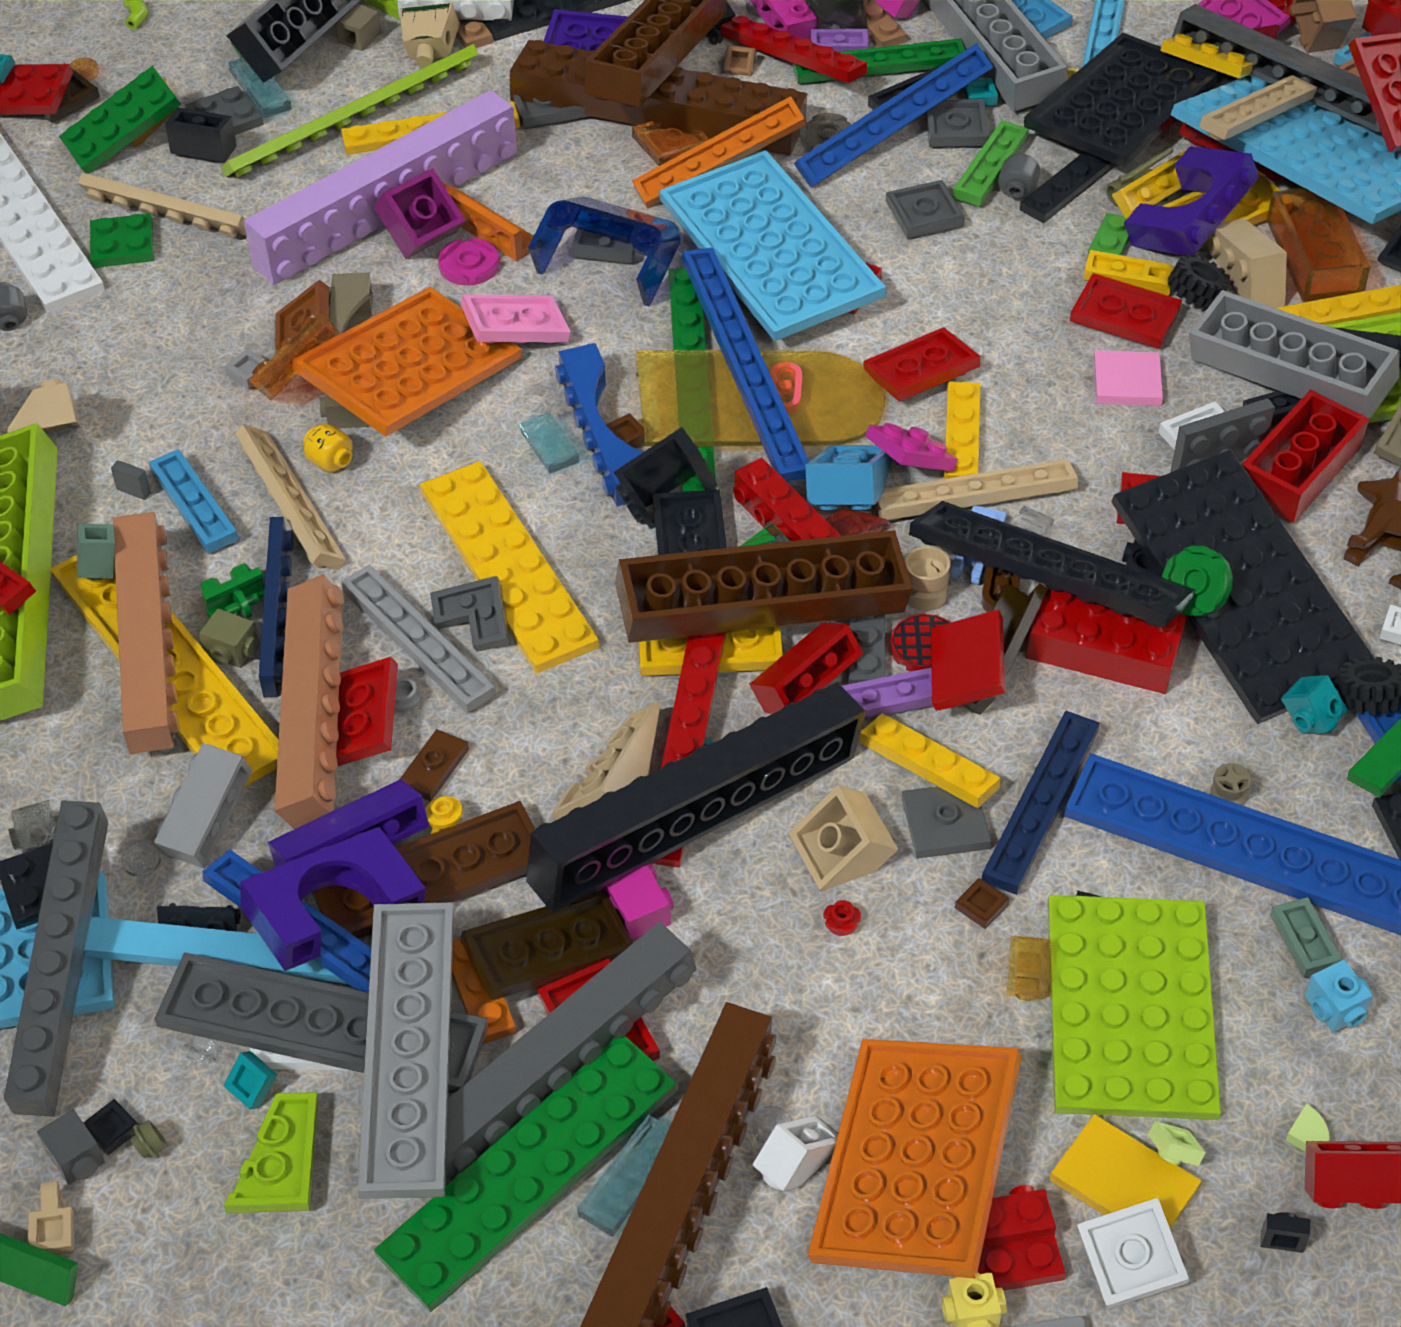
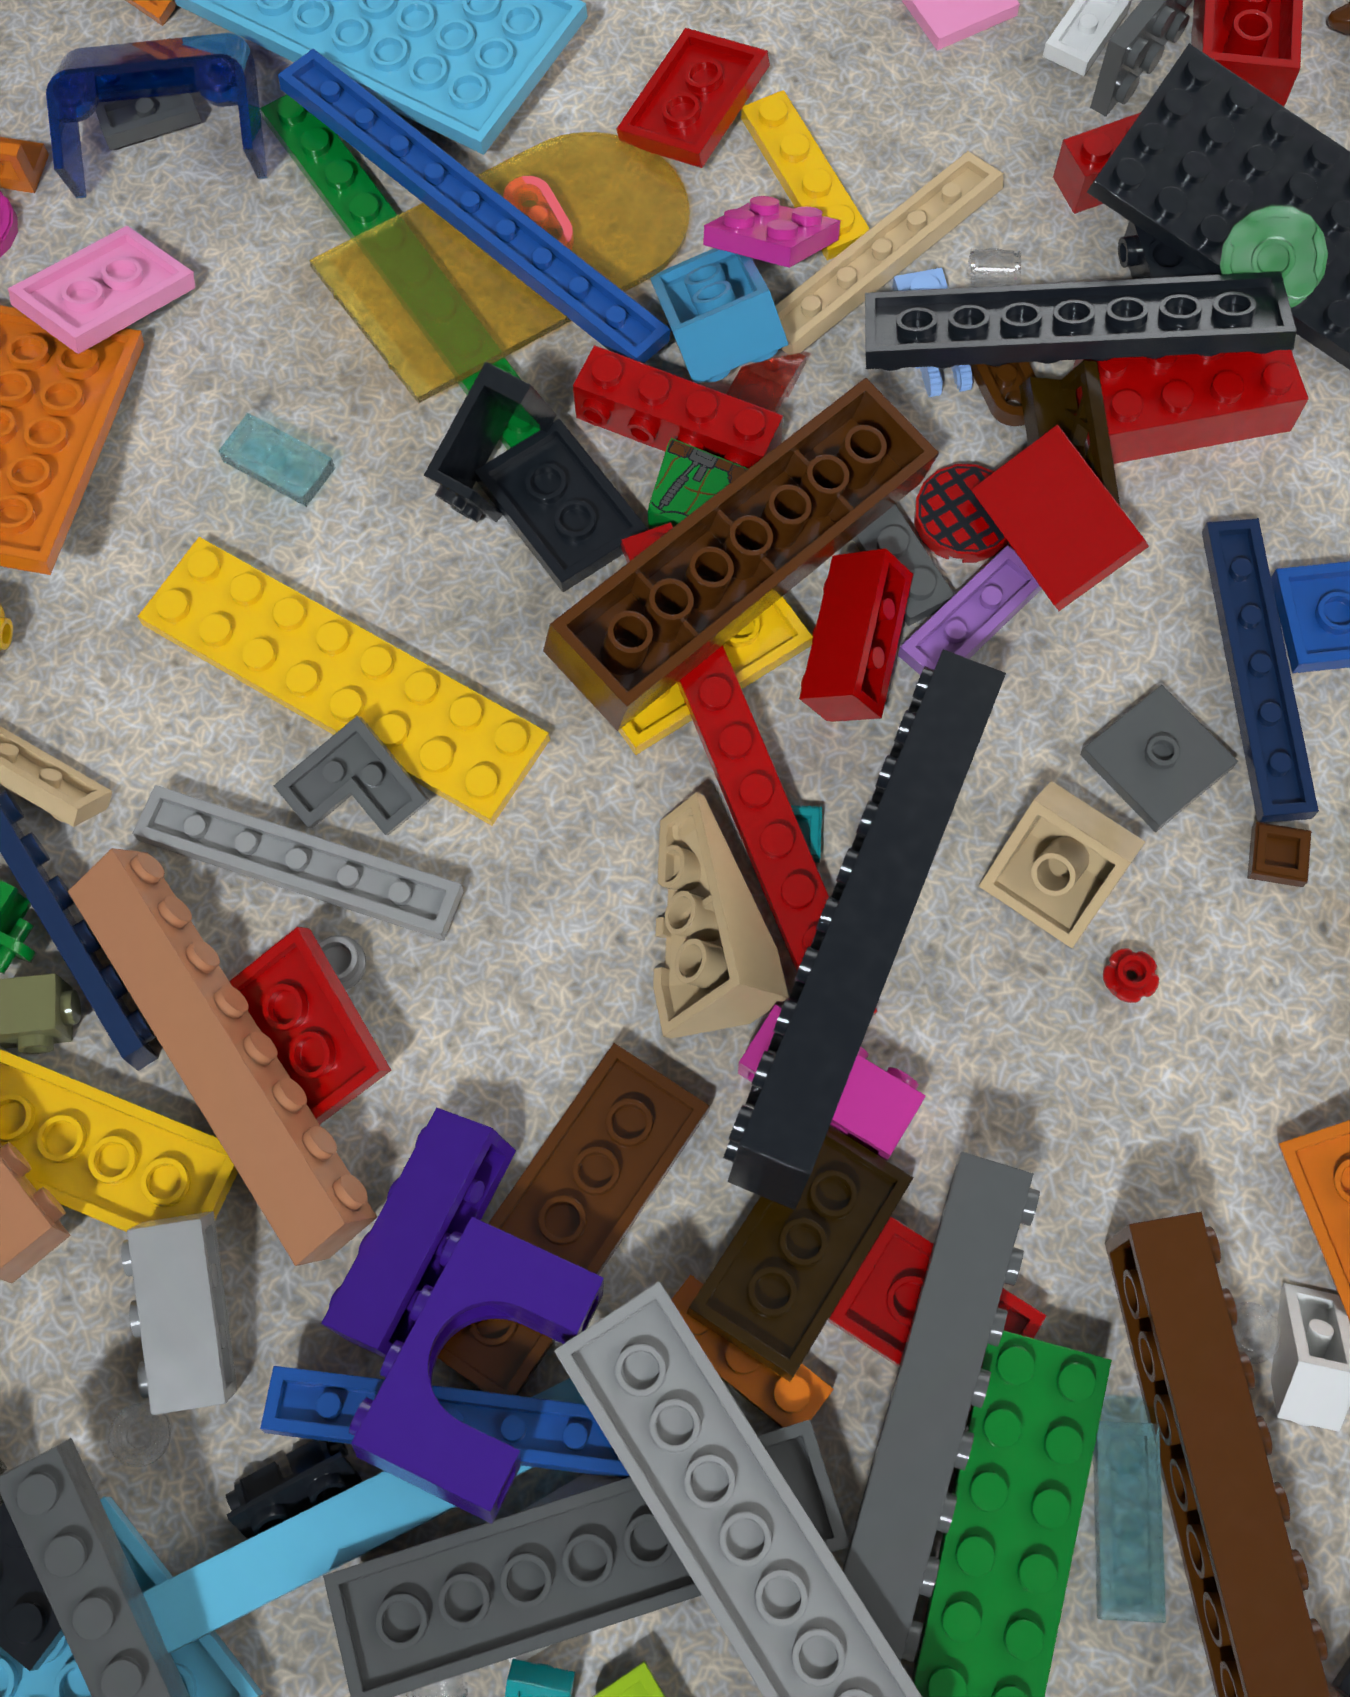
camera: 30 degrees left, 20 degrees up
(435, 763) = (451, 1047): reddish brown plate -> none
(443, 813) = (524, 1121): yellow plate -> none
(584, 381) = (254, 331): blue arch -> none
(628, 430) = (371, 394): reddish brown plate -> none
(929, 577) = (924, 402): tan wheel -> none
(930, 760) = (1097, 684): yellow plate -> none

